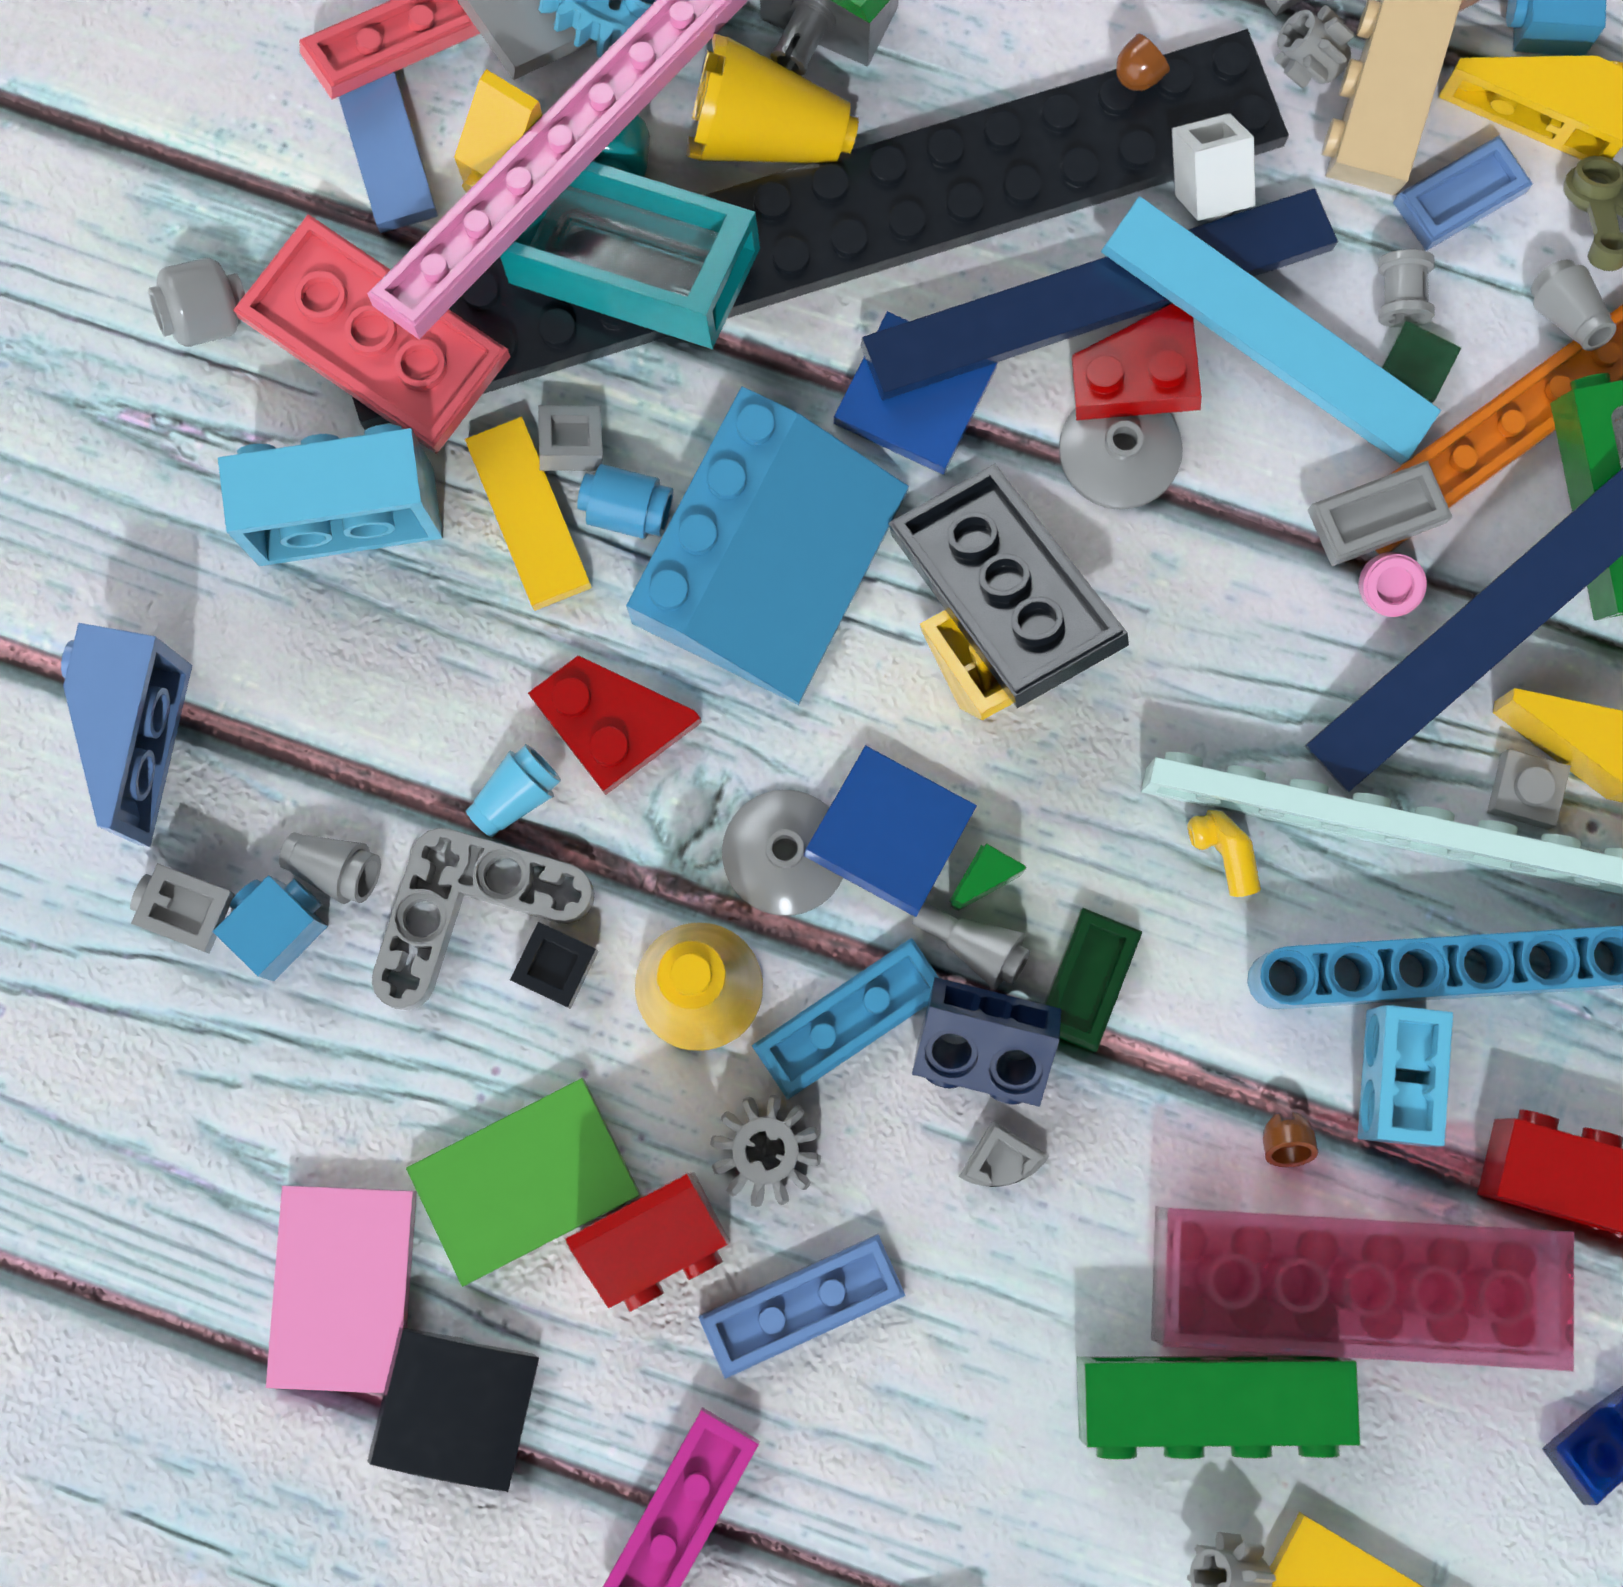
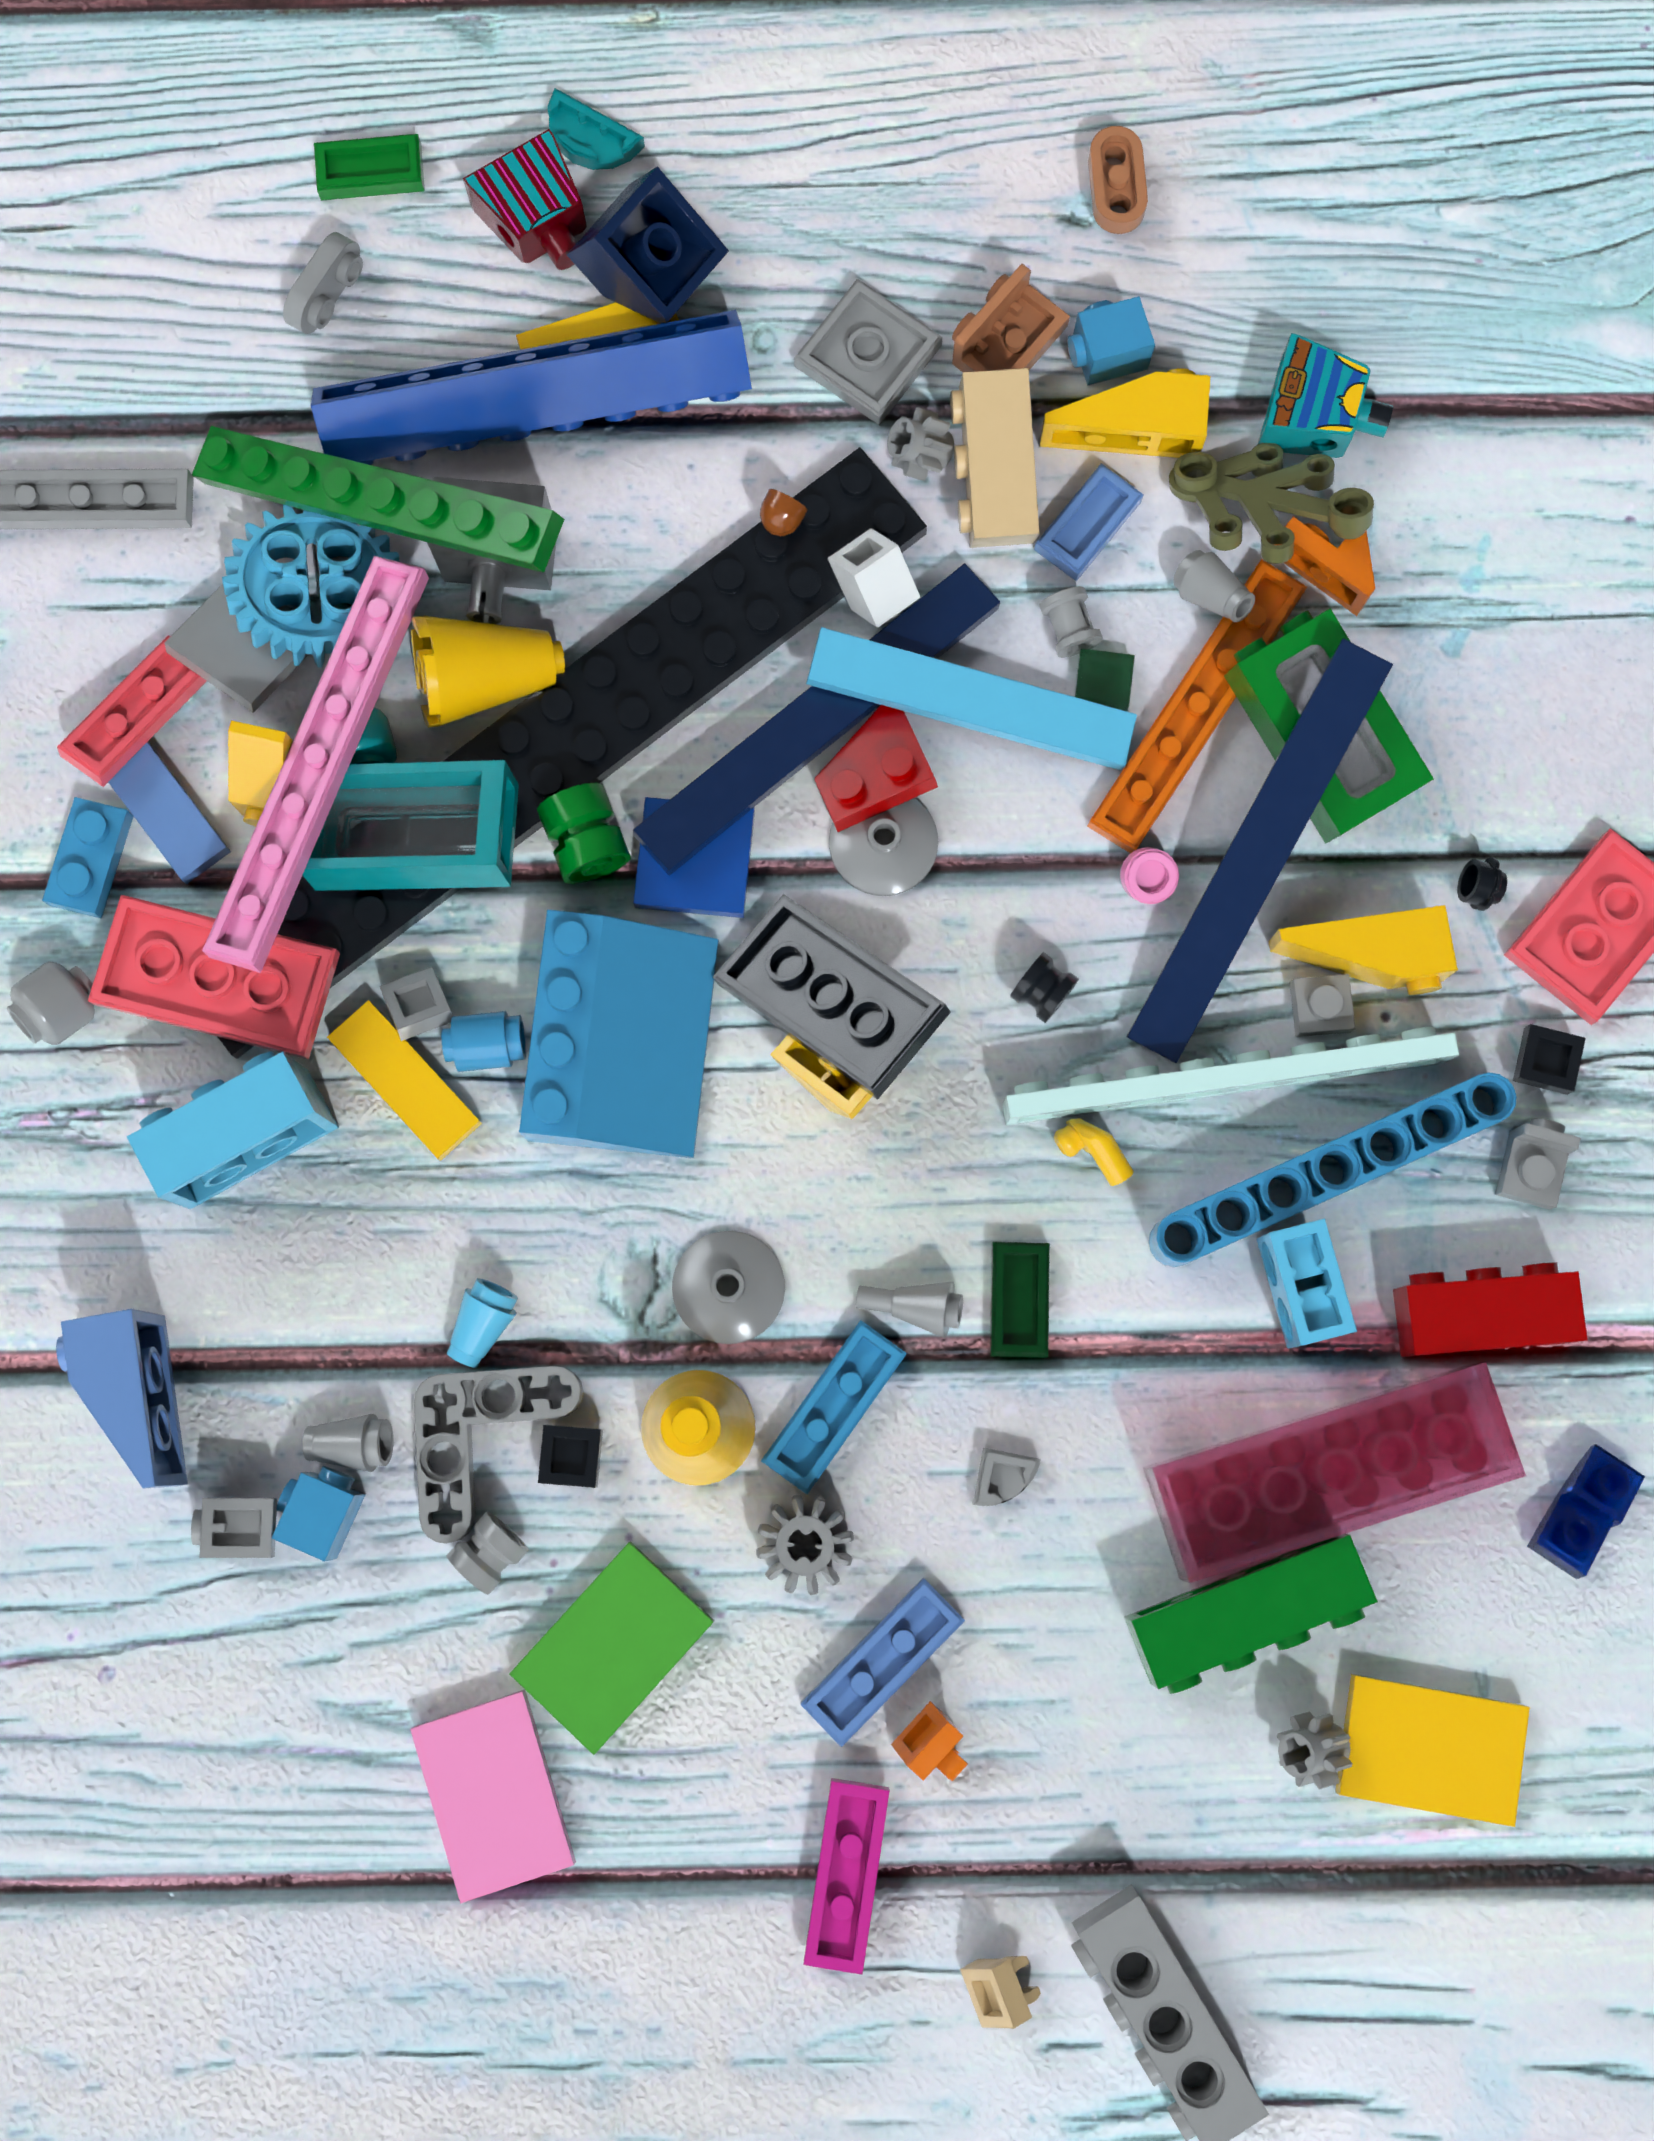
camera: 20 degrees left, 0 degrees up
(290, 169) = (87, 857): none -> dark azure plate
(430, 1033) = (487, 1553): none -> light grey wheel
(453, 1410) = (625, 1860): black slope -> none
(610, 719) = (539, 1230): red wing -> none
(649, 1242) = (737, 1658): red slope -> none
(810, 315) = (581, 826): none -> green wheel
(820, 1412) = (930, 1744): none -> orange tile
(890, 831) = (809, 1237): blue tile -> none
(985, 874) = (901, 1245): green slope -> none
(991, 1026) = (954, 1371): dark blue brick -> none
(1236, 660) = (1044, 987): none -> black wheel
(1289, 1141) = (1232, 1372): dark orange hinge -> none
(1379, 513) = (1117, 820): light grey tile -> none

